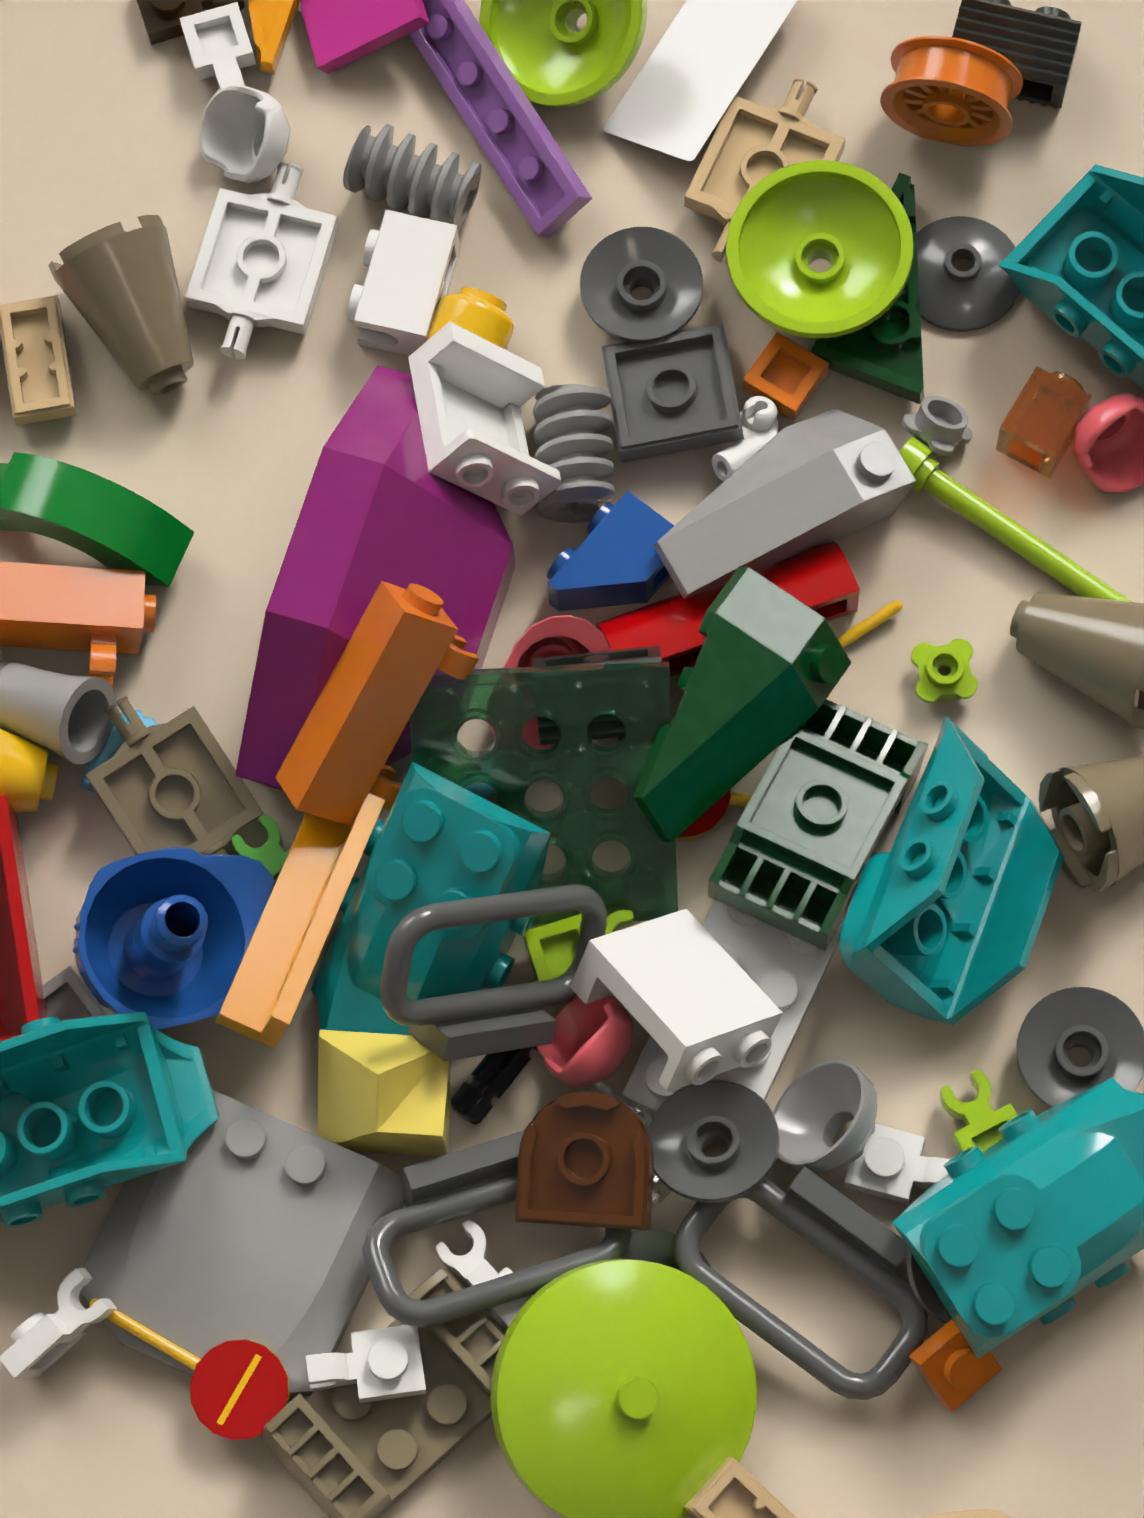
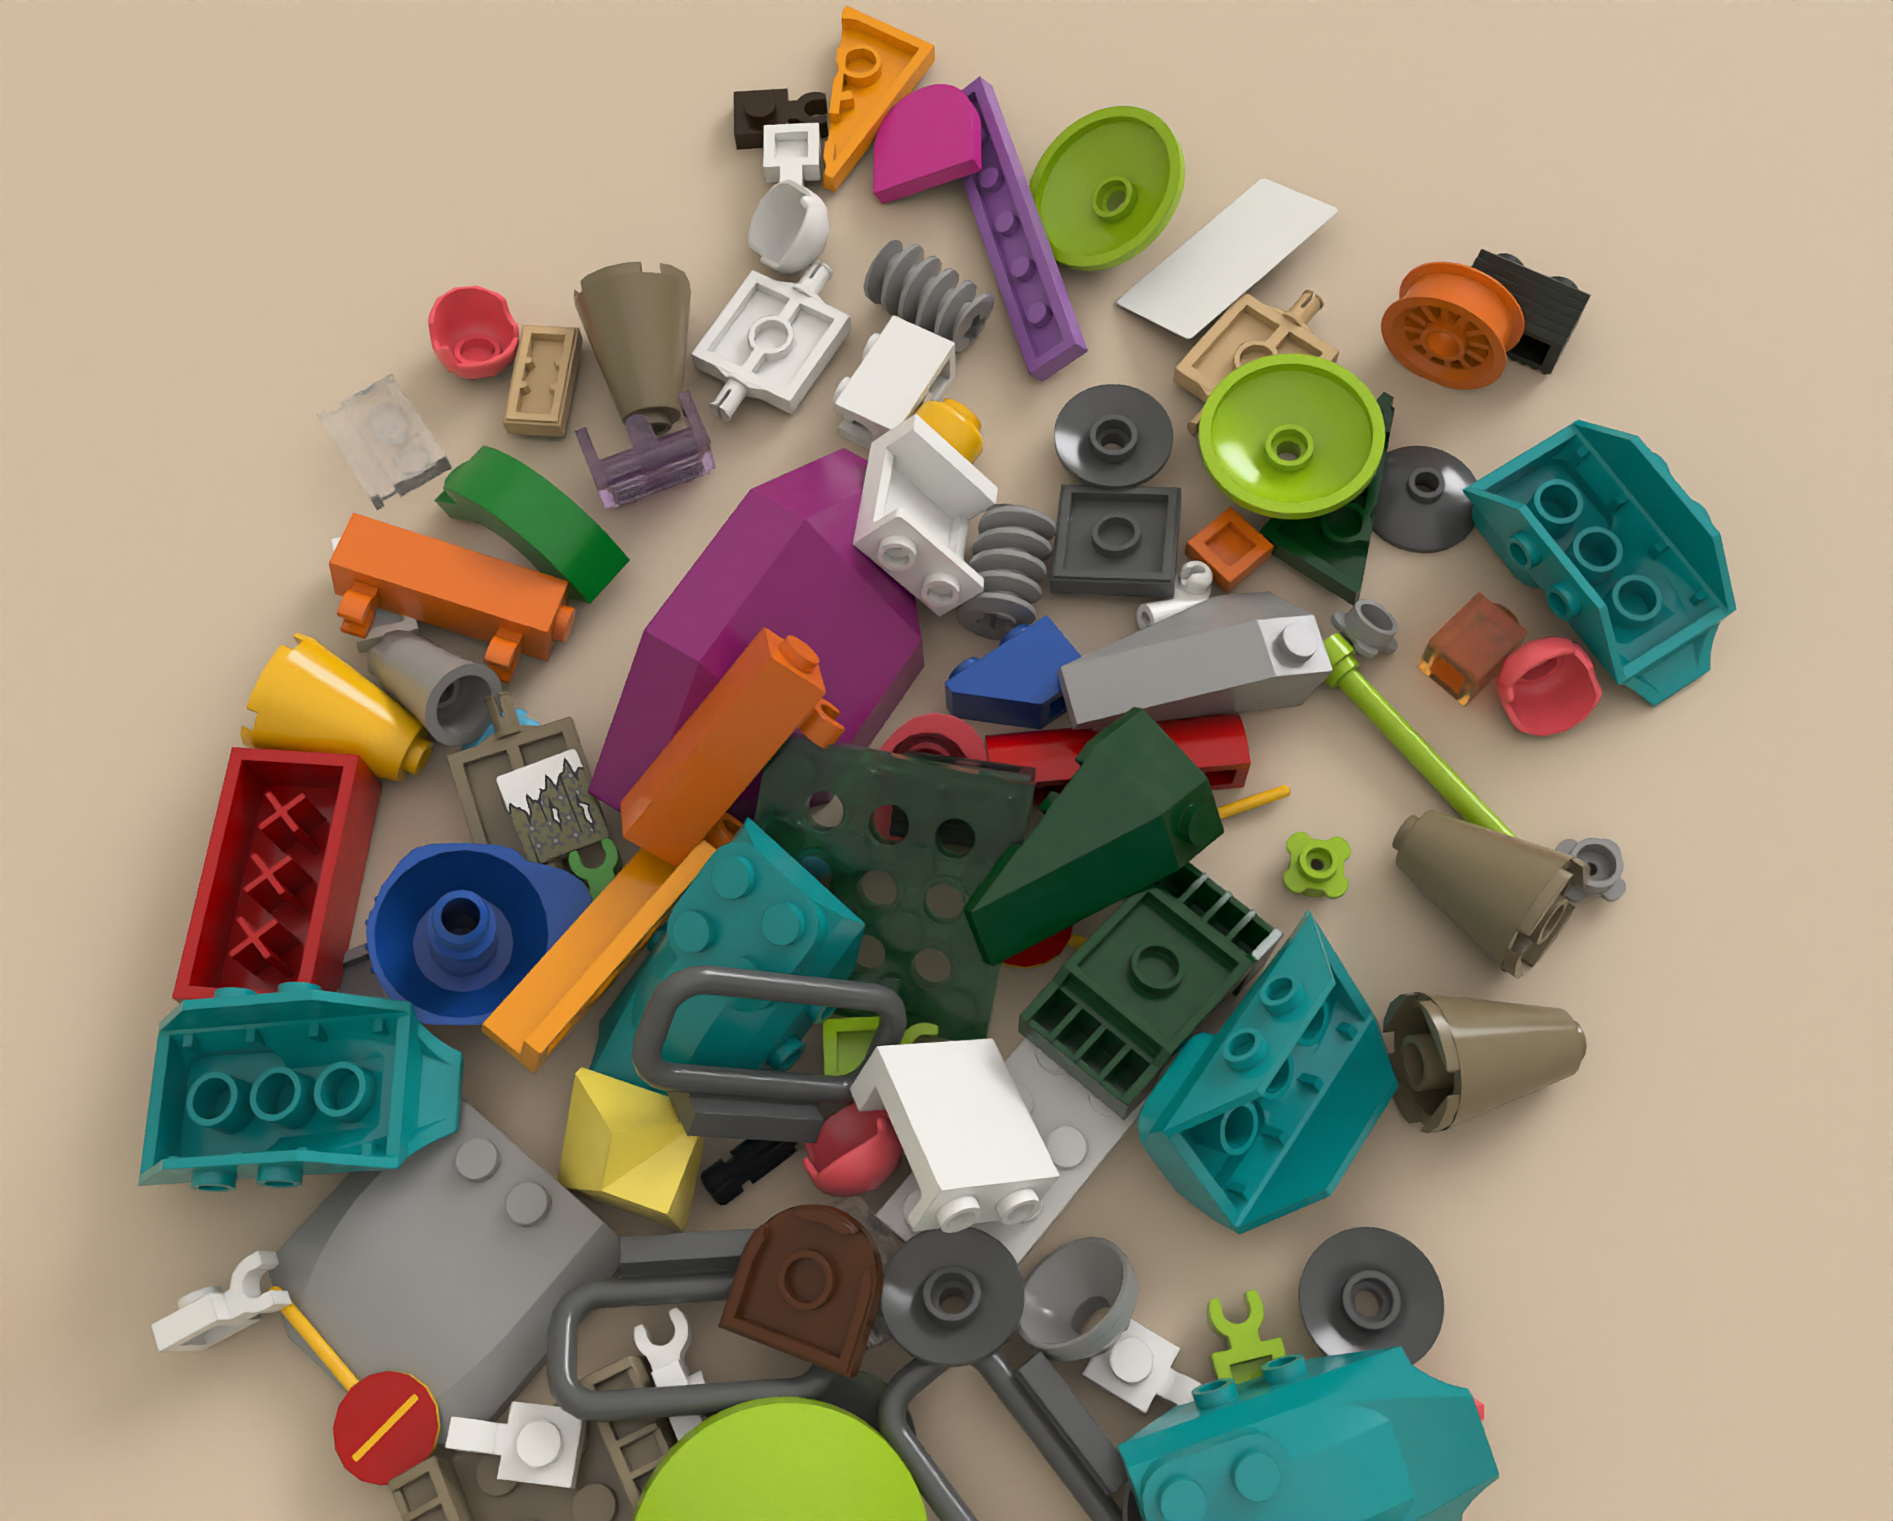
camera: 15 degrees right, 5 degrees down
(182, 421) = (652, 462): none -> clear purple window
(203, 797) = (552, 807): none -> sticker

